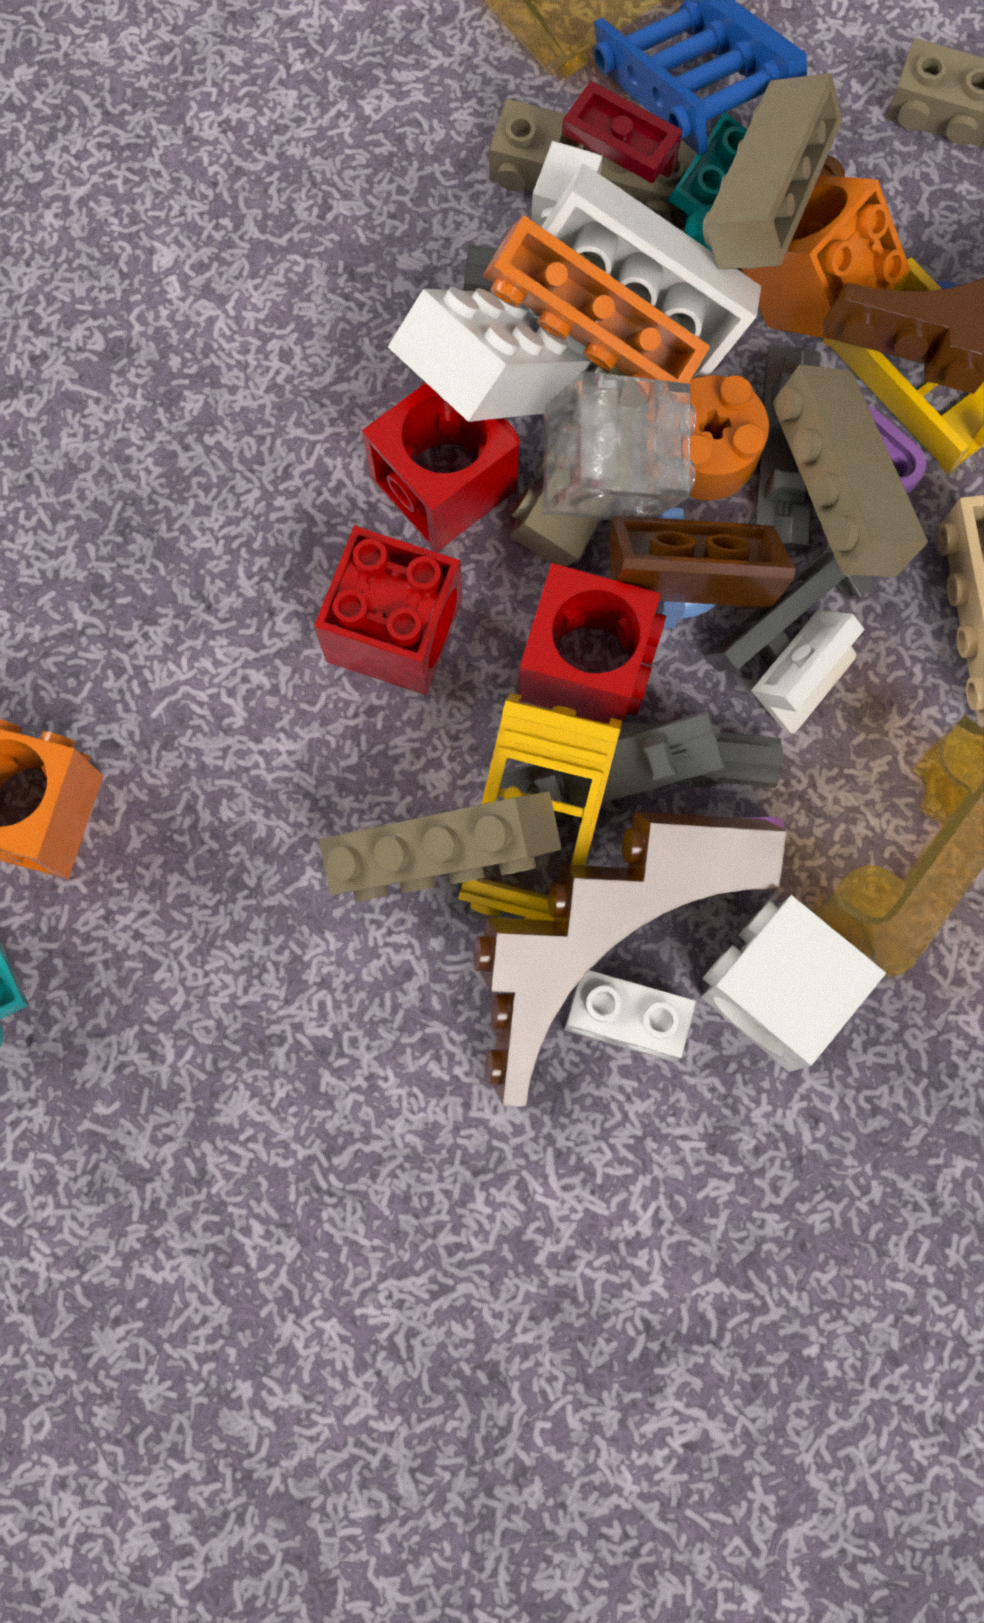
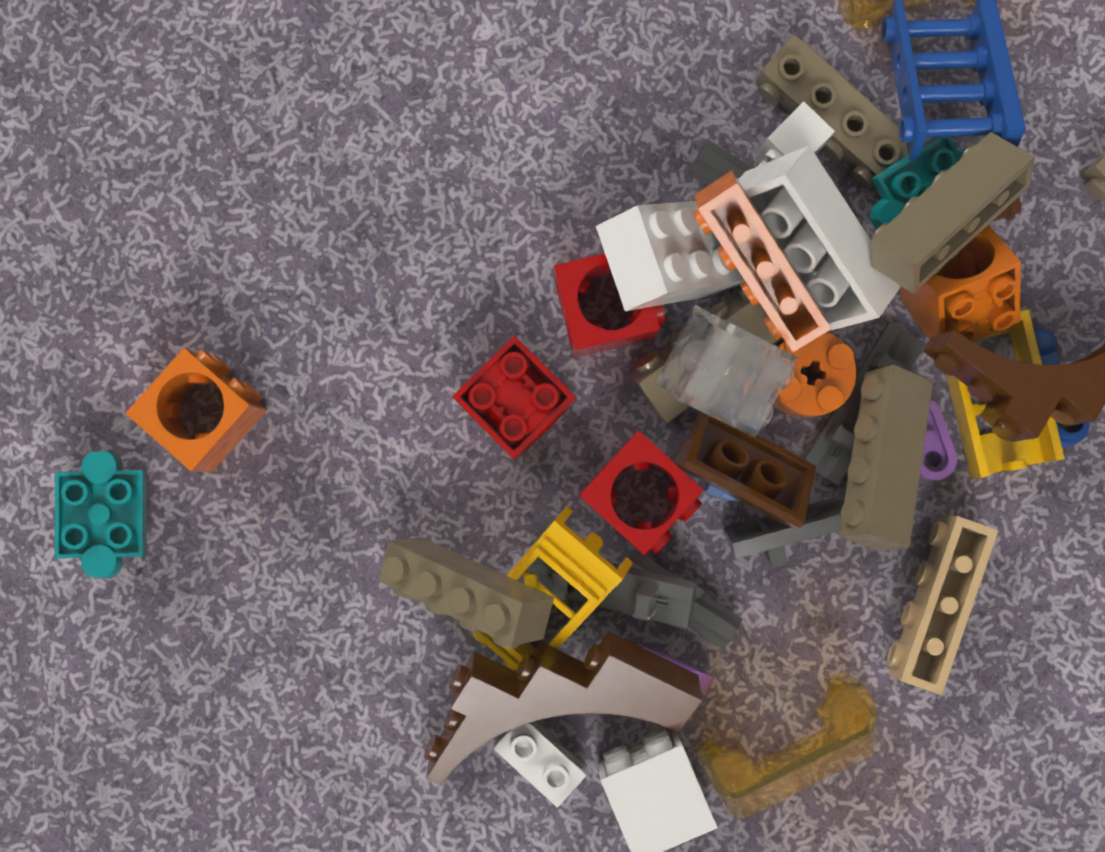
camera: 30 degrees right, 10 degrees up
(623, 133) = (857, 121): dark red panel -> none
(808, 668) = (787, 577): white panel -> none

